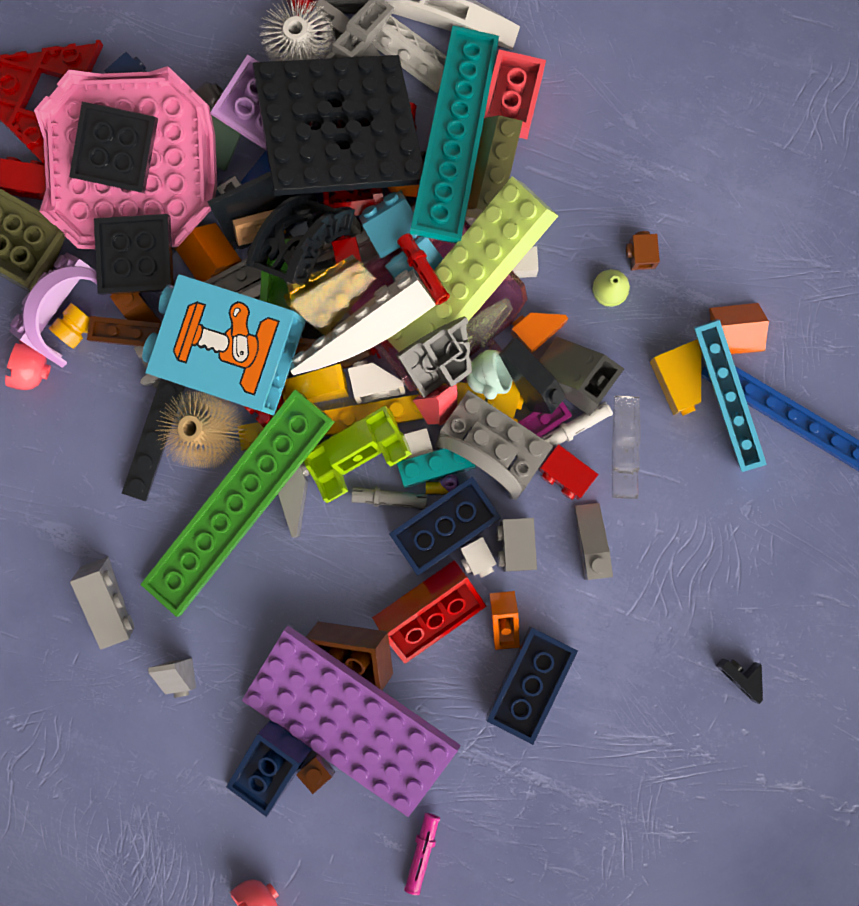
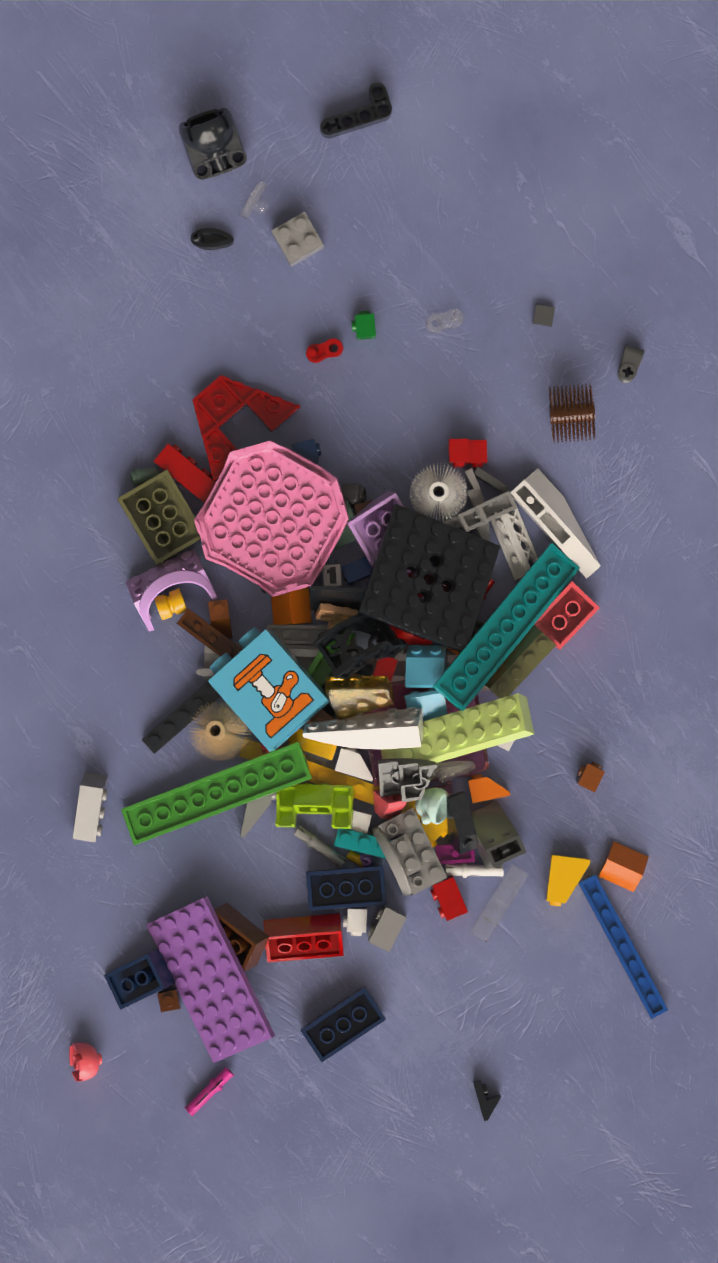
camera: 20 degrees right, 5 degrees up
(26, 367) = (124, 618): coral cylinder -> none
(113, 147) = (268, 509): black plate -> none
(133, 254) = (241, 586): black plate -> none
(174, 677) = (112, 885): light grey slope -> none
(417, 259) = (427, 714): red pin -> none
(504, 620) = (350, 972): orange slope -> none
(593, 542) = (439, 954): light grey slope -> none
(611, 288) = (554, 788): yellowish green helmet -> none
(730, 395) = (585, 910): medium azure brick -> none

